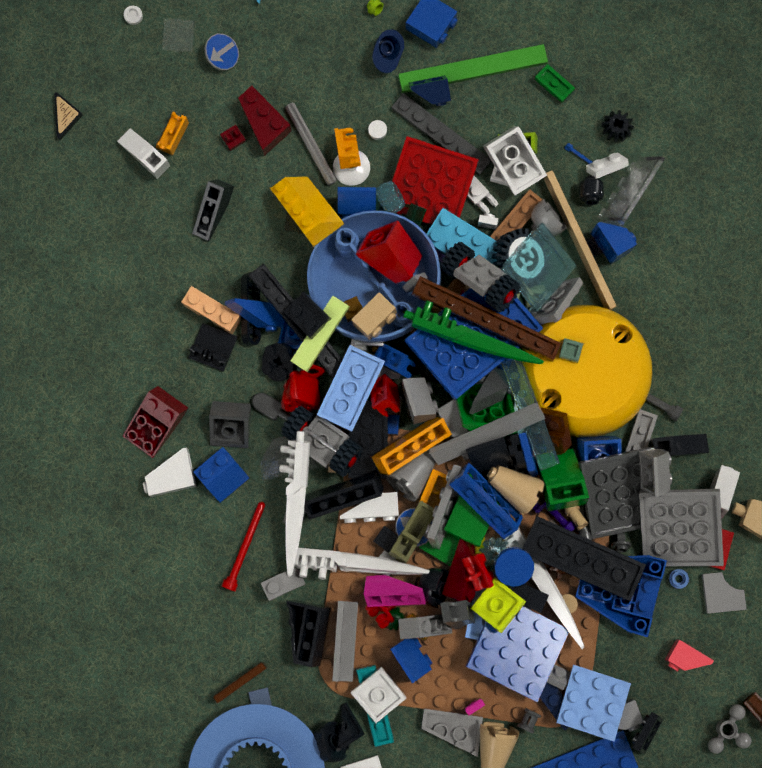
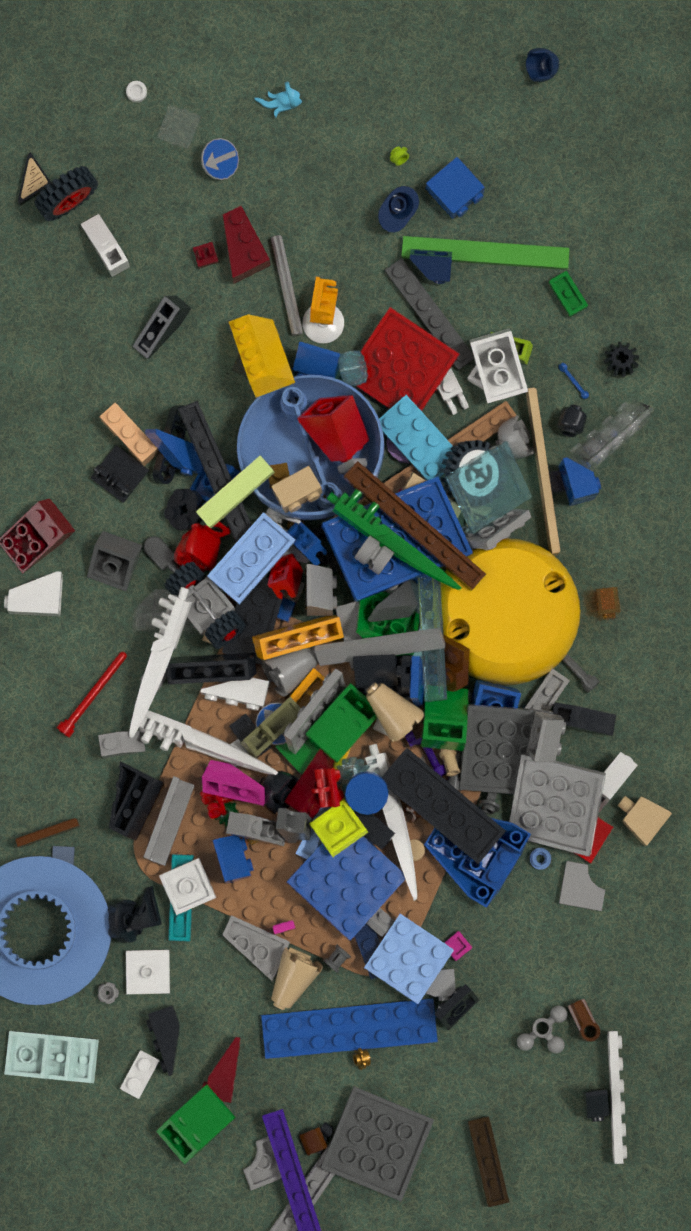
camera: 15 degrees right, 0 degrees up
(96, 116) = (66, 193): none -> black wheel
(172, 133) = (142, 233): light orange hinge -> none
(221, 474) = (89, 611): blue slope -> none
(307, 315) = (227, 468): black plate -> none
(377, 130) = (362, 290): white tile -> none
(415, 213) = (374, 393): clear green tile -> none
(460, 354) = (374, 555): none -> light grey wheel
(480, 276) = (421, 479): plate -> none
(485, 503) = (356, 718): blue fence -> none
(488, 221) = (451, 422): white plate -> none
(571, 350) = (494, 584): sand green tile -> none
(607, 165) = (597, 398): white plate -> none
(630, 675) = (459, 945): none -> dark pink tile
(669, 338) = (607, 603): none -> clear orange brick
(685, 657) = (522, 942): coral slope -> none

